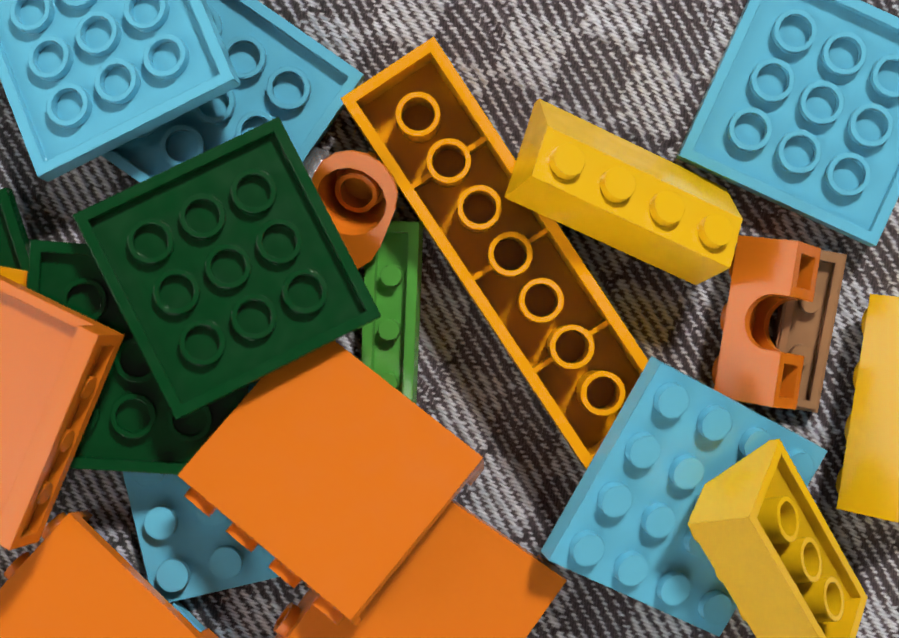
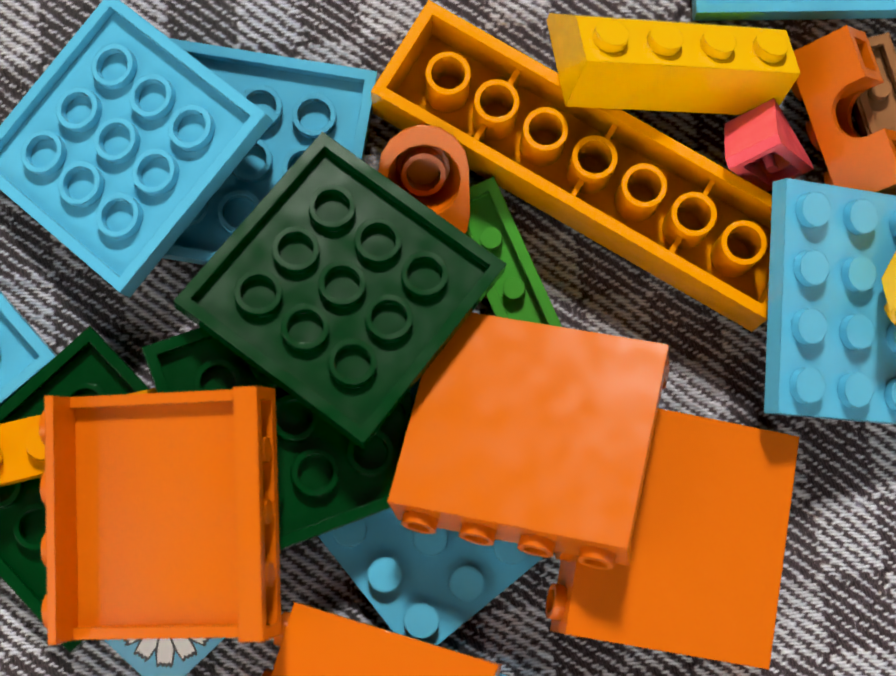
camera: 30 degrees left, 10 degrees down
(669, 311) = (764, 147): none -> coral slope

